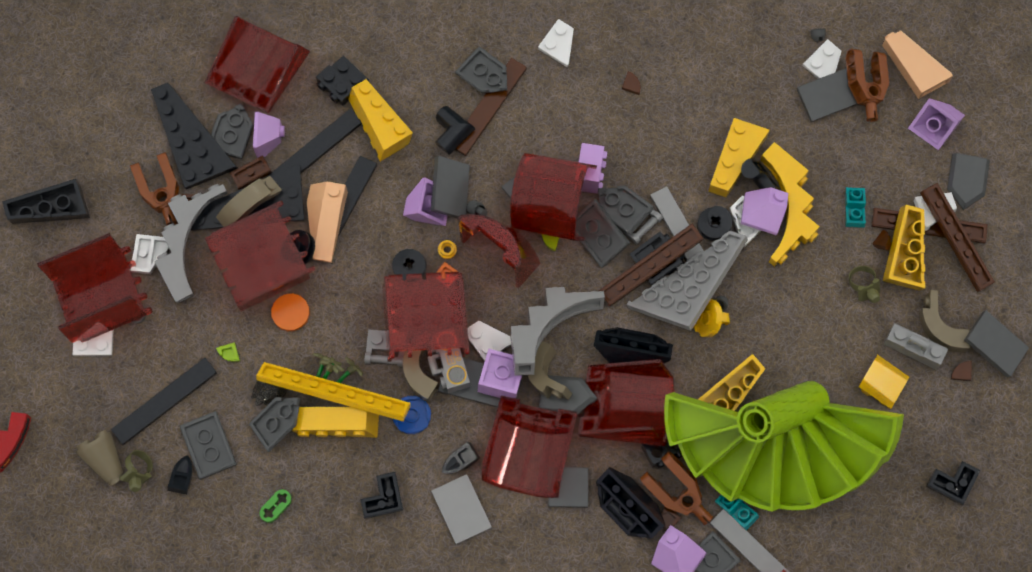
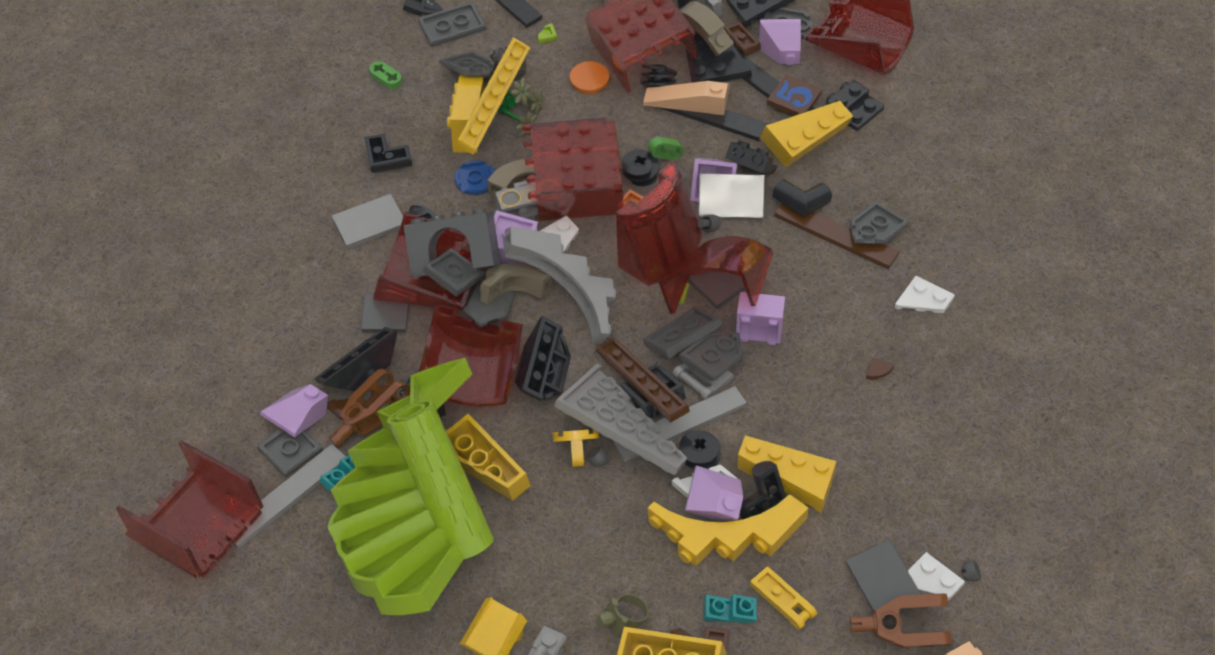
camera: 90 degrees right, 20 degrees down
(331, 129) = (794, 96): none -> reddish brown tile
(391, 242) = (670, 148): none -> bright green beam
(413, 167) = (754, 159): none -> black plate
(508, 398) = (478, 229): none -> dark grey arch
(542, 421) = (453, 272): none -> dark grey tile
(845, 168) = (783, 597): none -> yellow plate

